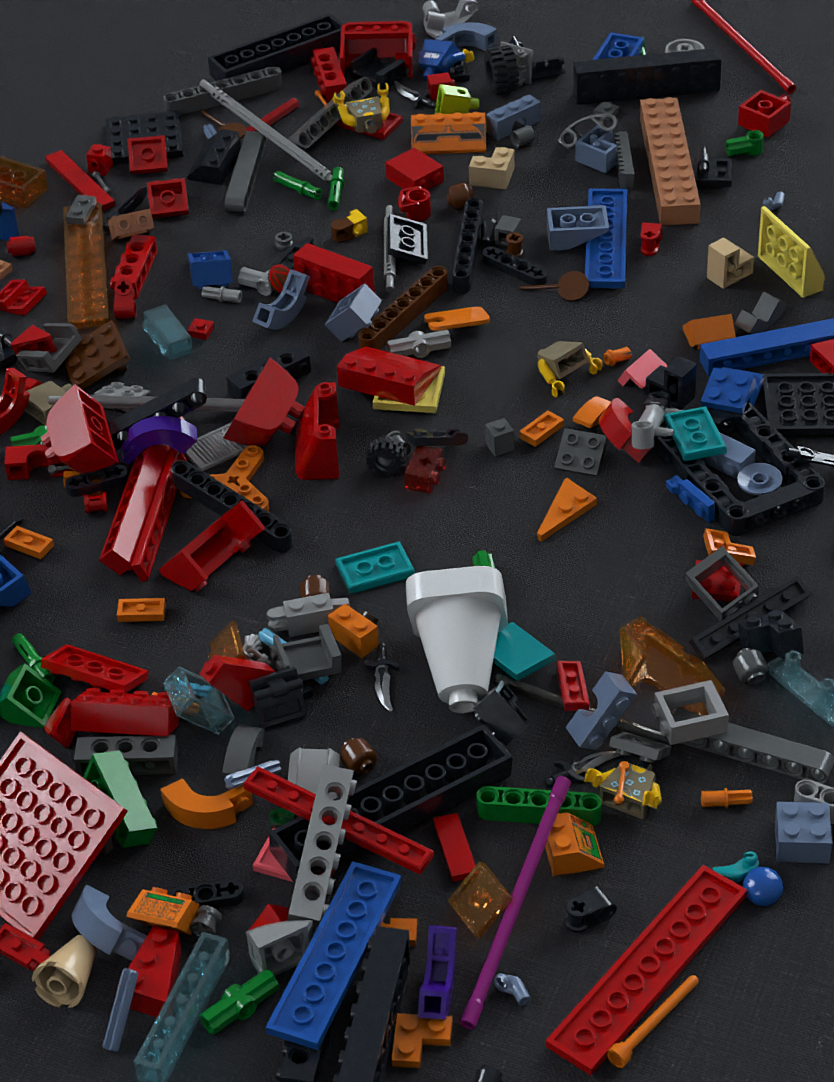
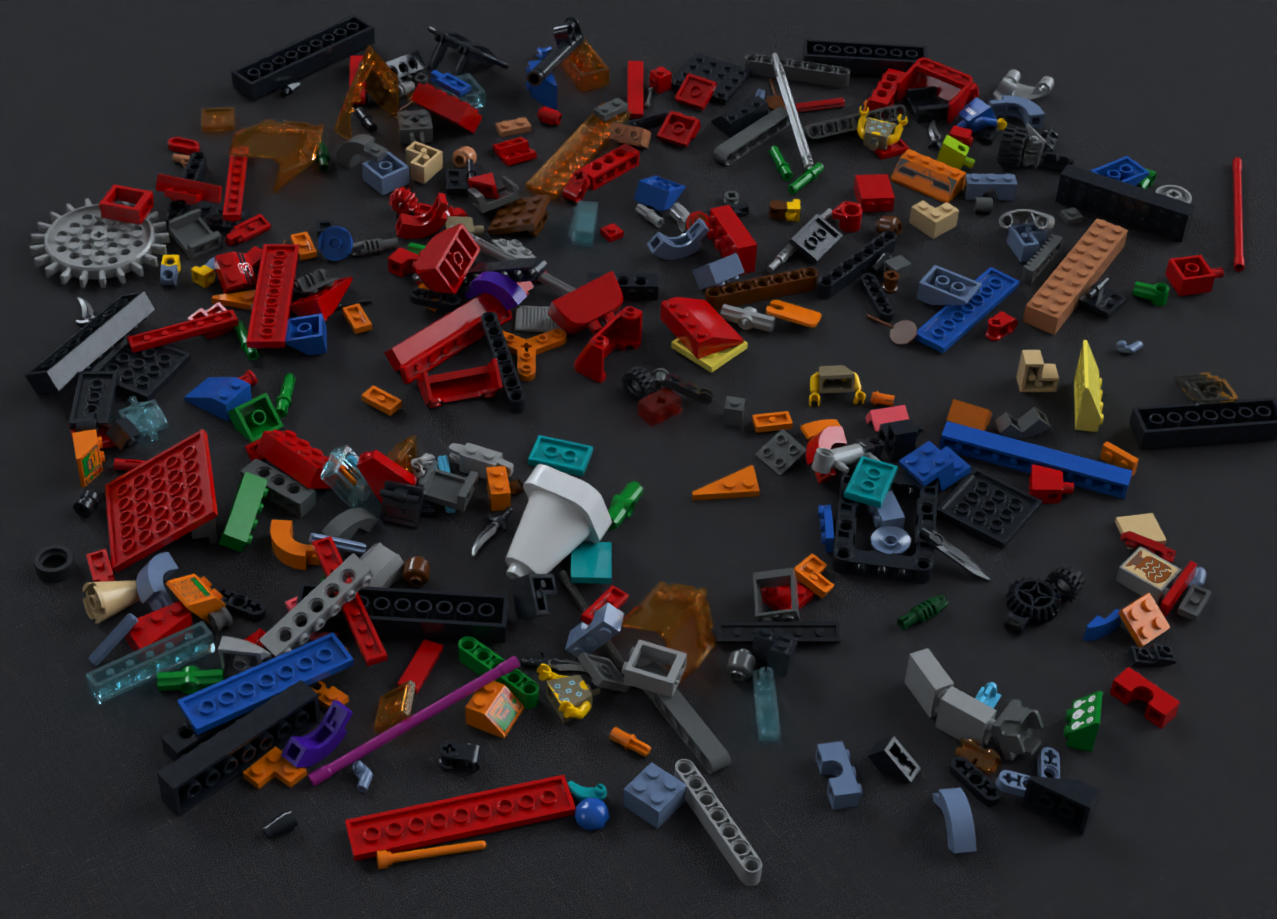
camera: 30 degrees right, 0 degrees up
(94, 669) = (312, 421): red plate -> none
(96, 503) = (423, 314): red bush -> none
(313, 586) = (504, 445): reddish brown head -> none
(623, 767) = (574, 679): orange hinge -> none

